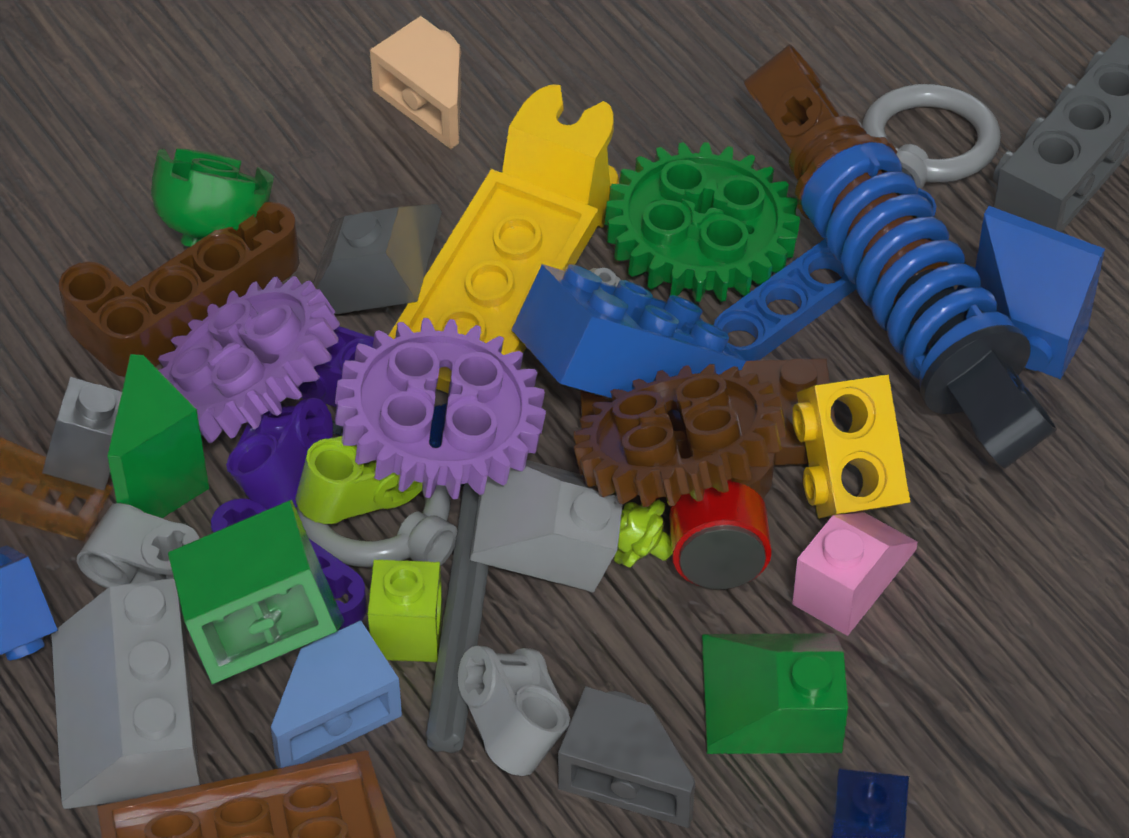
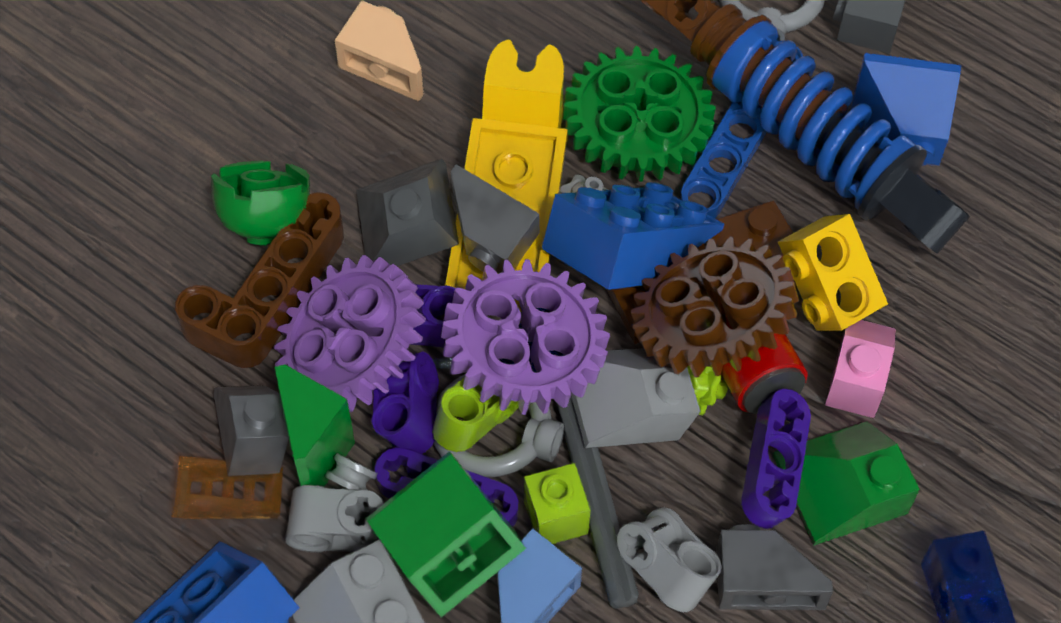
camera: 20 degrees left, 10 degrees up
(182, 508) = (350, 473): none -> light grey bush
(460, 279) = (492, 222): none -> flat silver slope
(667, 637) = (762, 473): none -> dark purple beam

